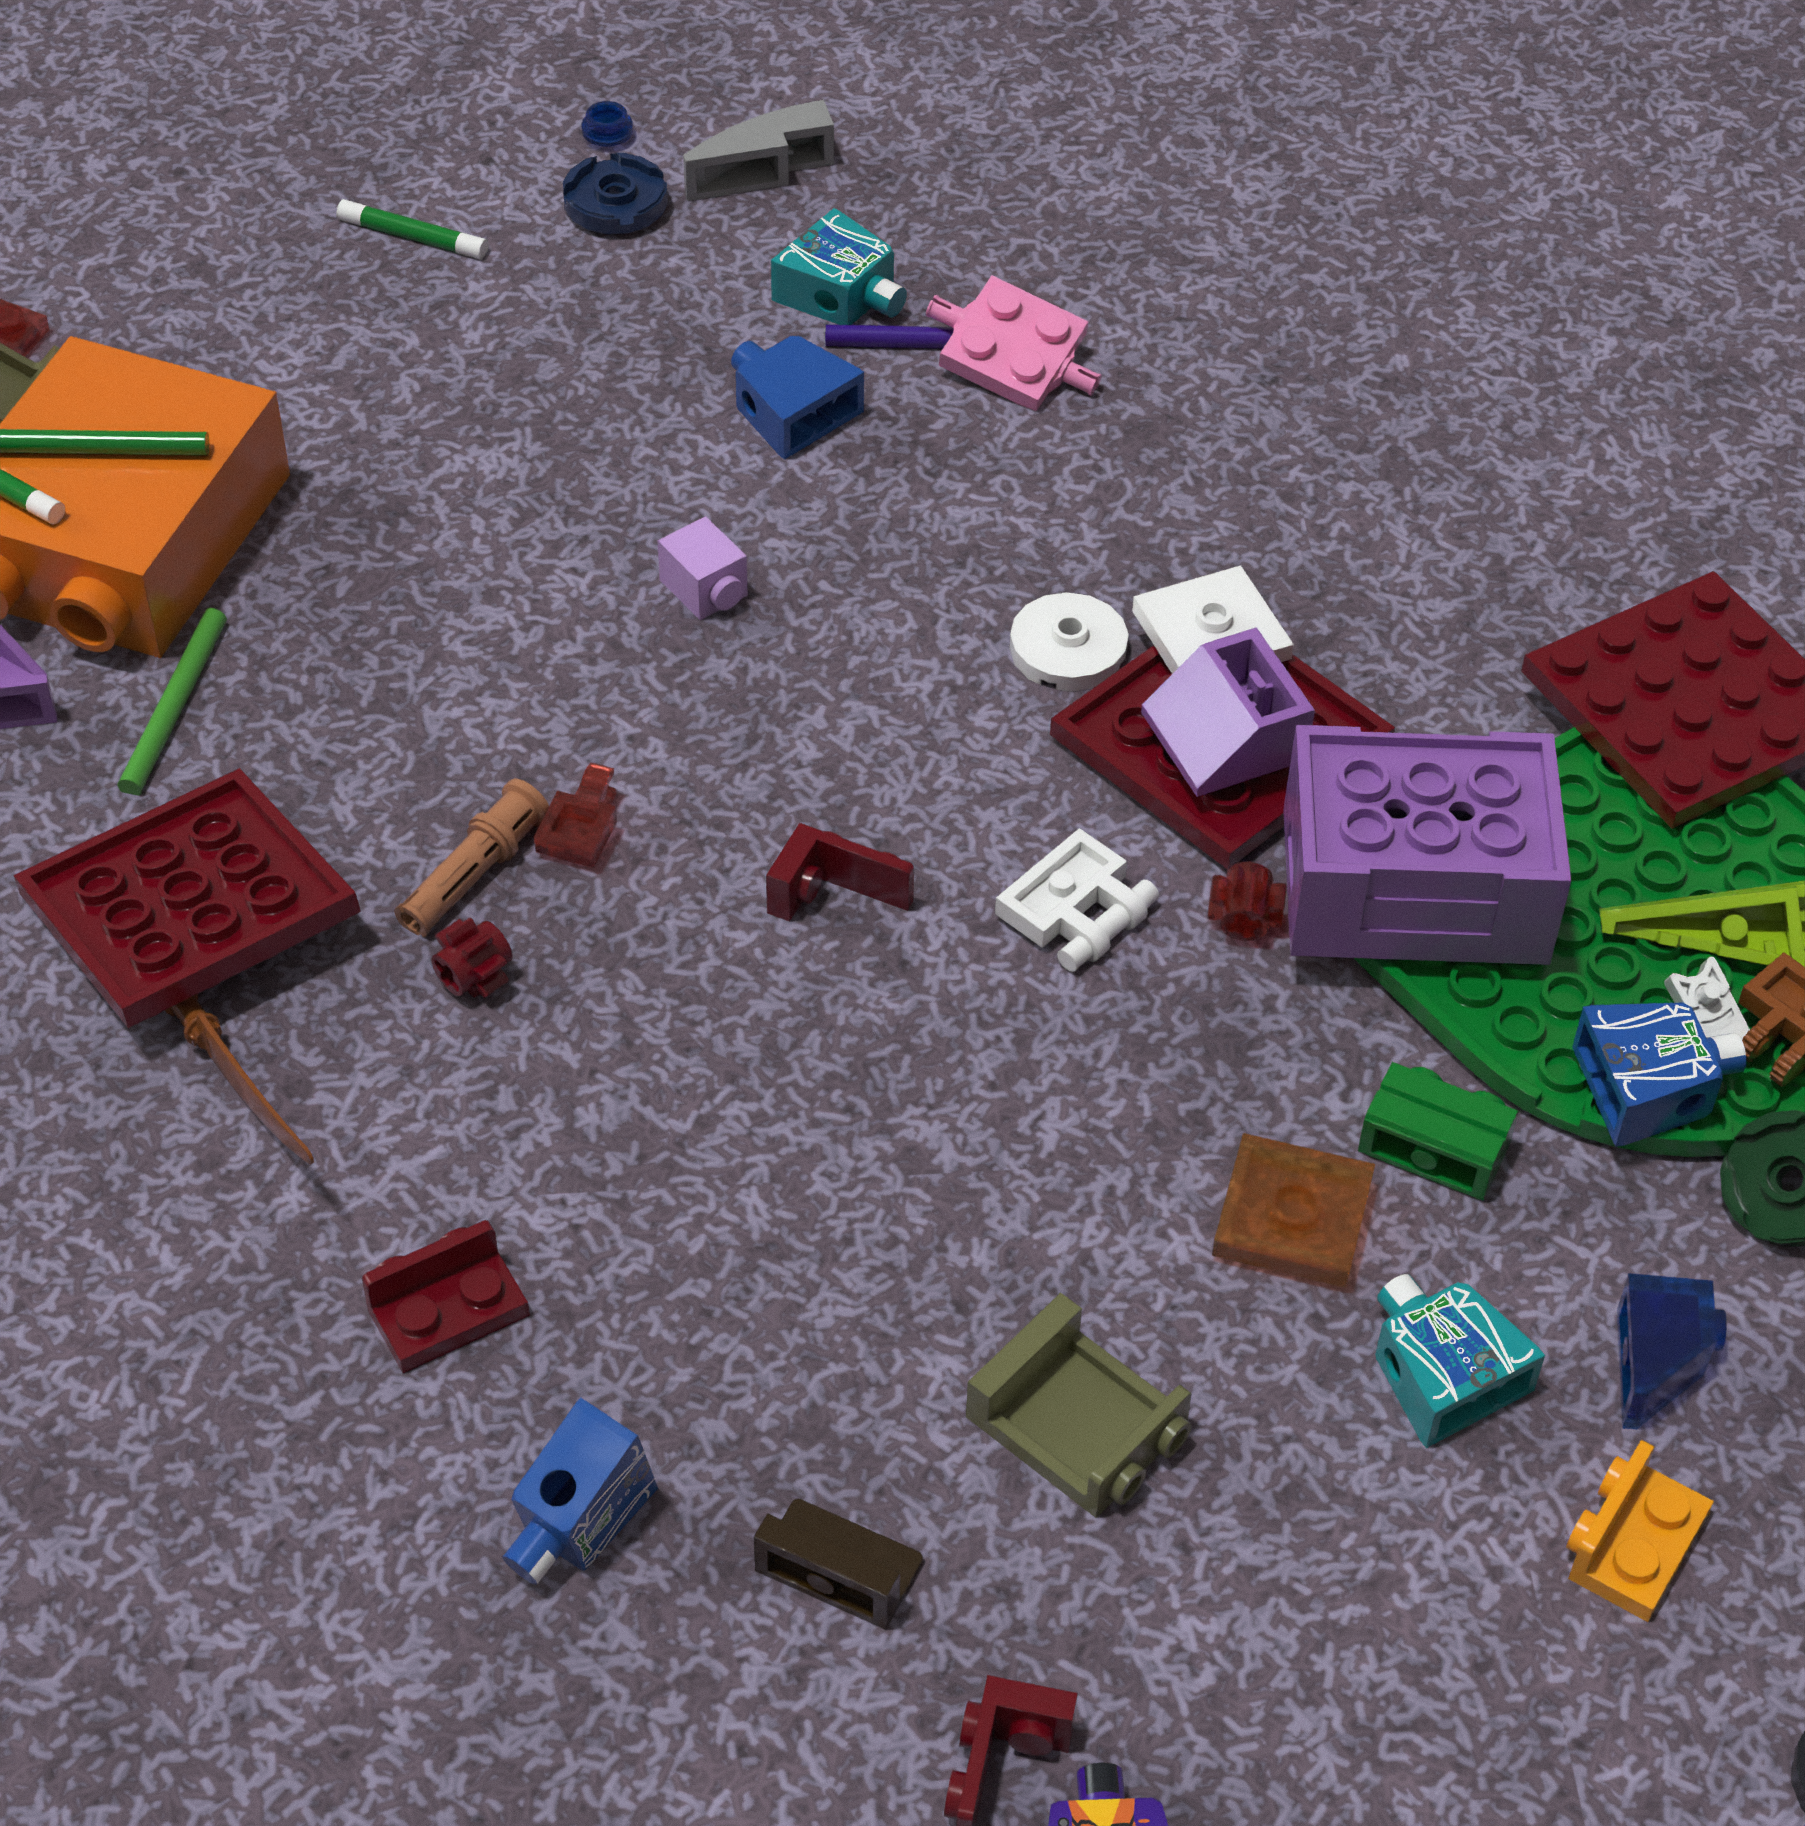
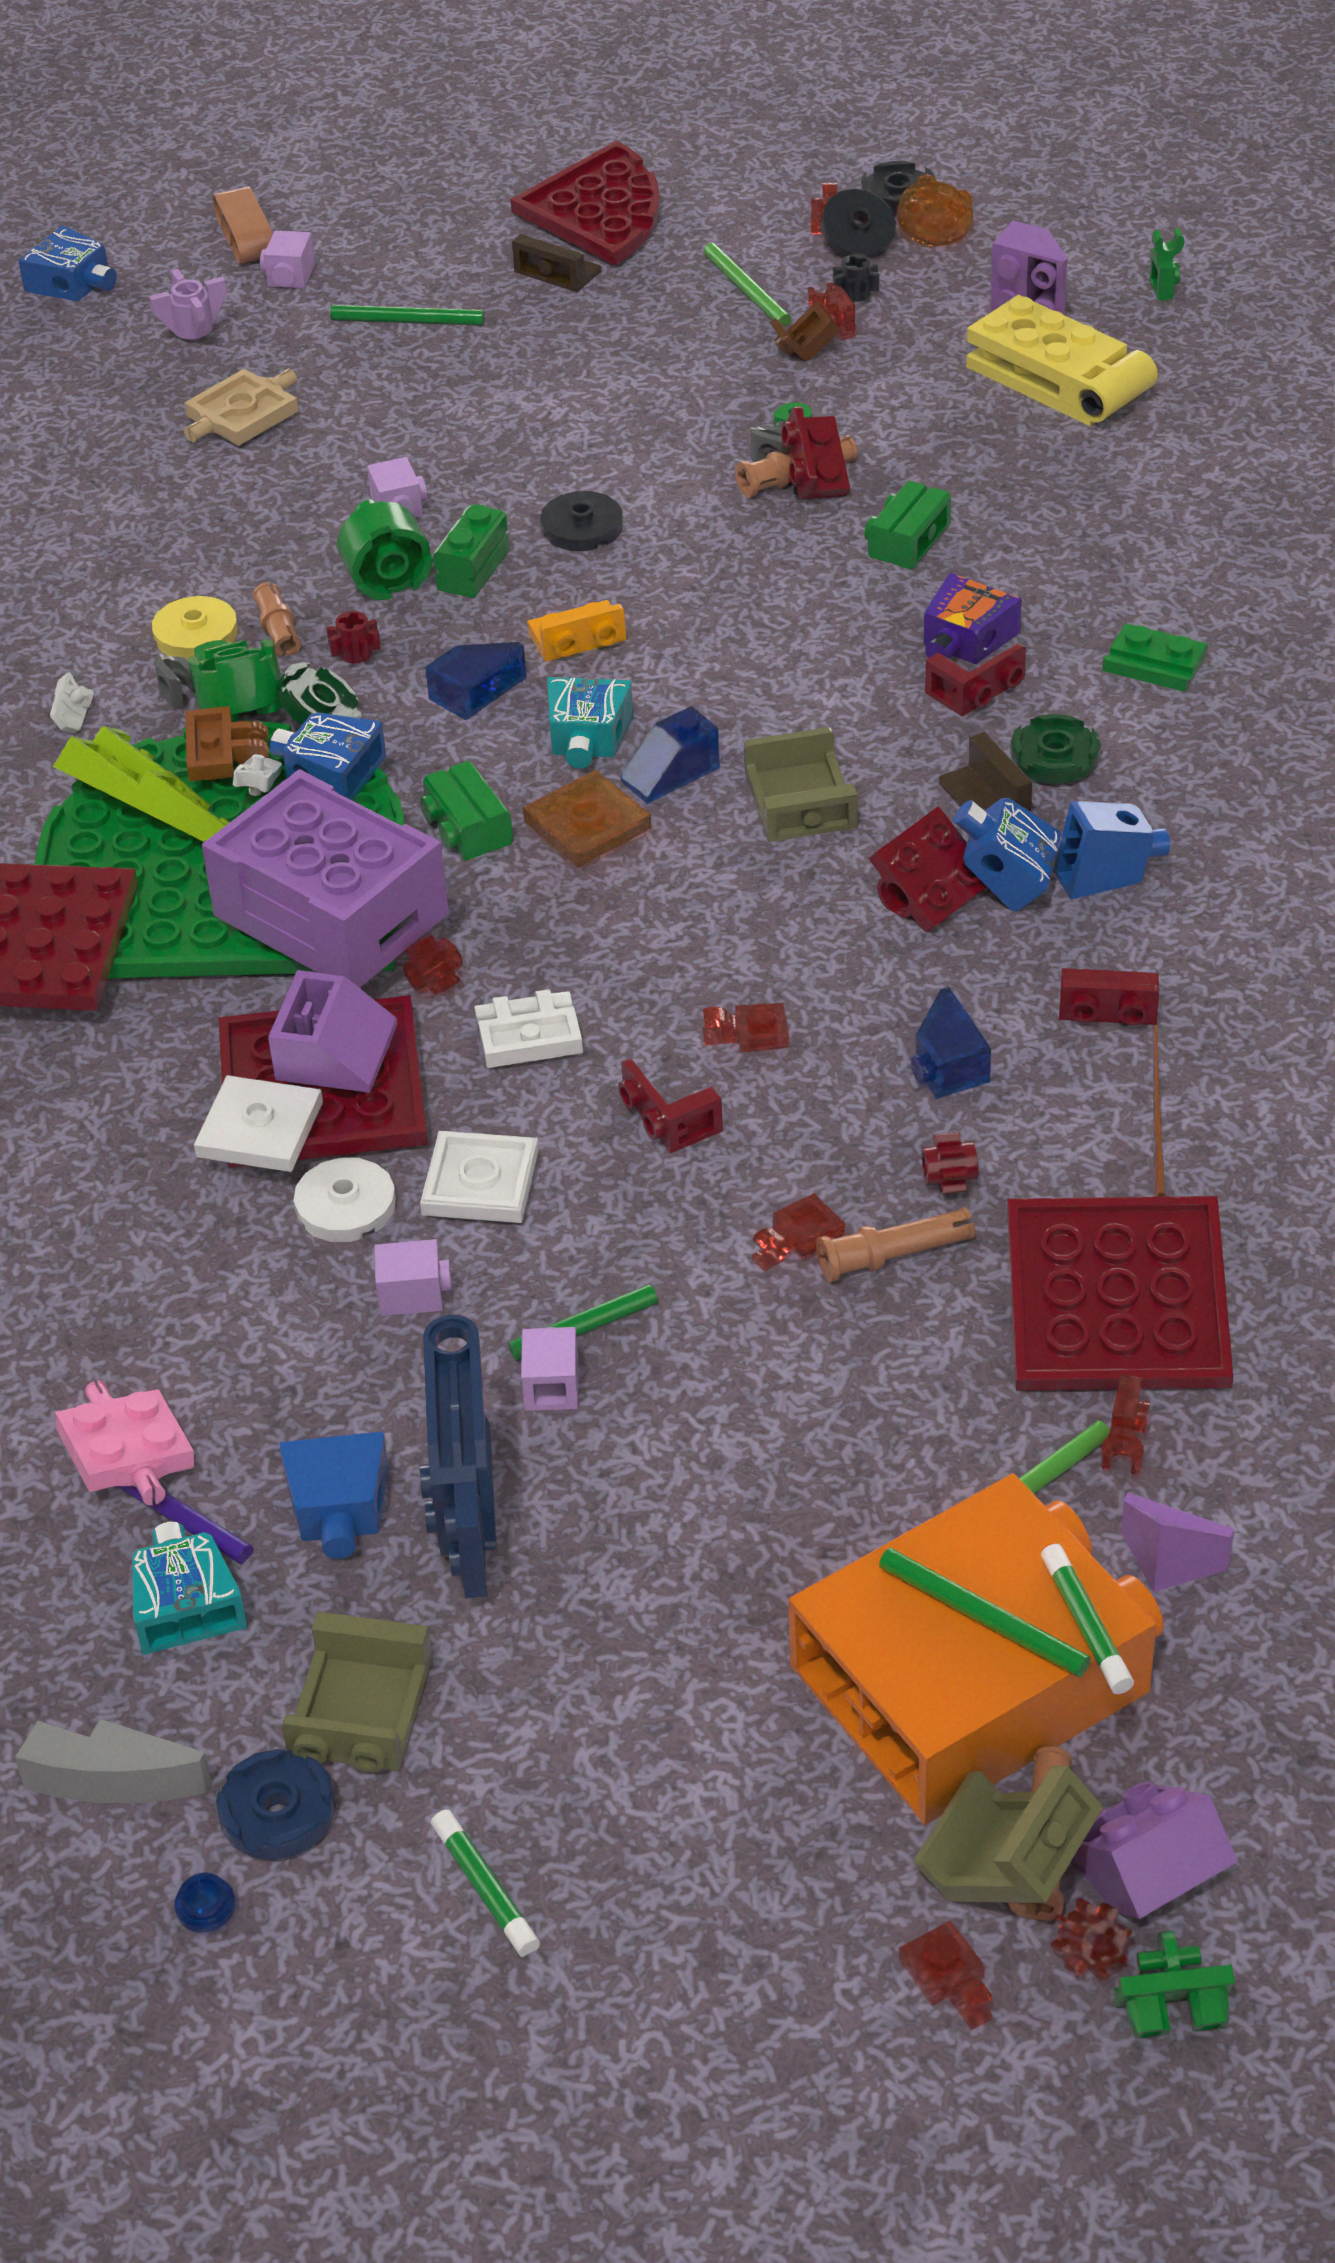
camera: 140 degrees left, 5 degrees down
(101, 786) = (1128, 1416): none -> clear red plate
(578, 1106) = (950, 1049): none -> clear blue slope
(620, 275) = (360, 1692): none -> olive panel
(647, 369) = (458, 1453): none -> dark blue plate
(703, 1408) = (1009, 850): none -> blue torso
(722, 645) = (599, 1315): none -> green piece
(787, 1653) = (1055, 749): none -> dark green plate
(788, 1342) = (925, 871): none -> dark red plate
(837, 1041) = (752, 1027): none -> clear red plate
(917, 582) = (410, 1277): none -> lavender brick
(957, 717) = (479, 1176): none -> white plate
(1276, 1366) = (673, 755): none -> clear blue slope

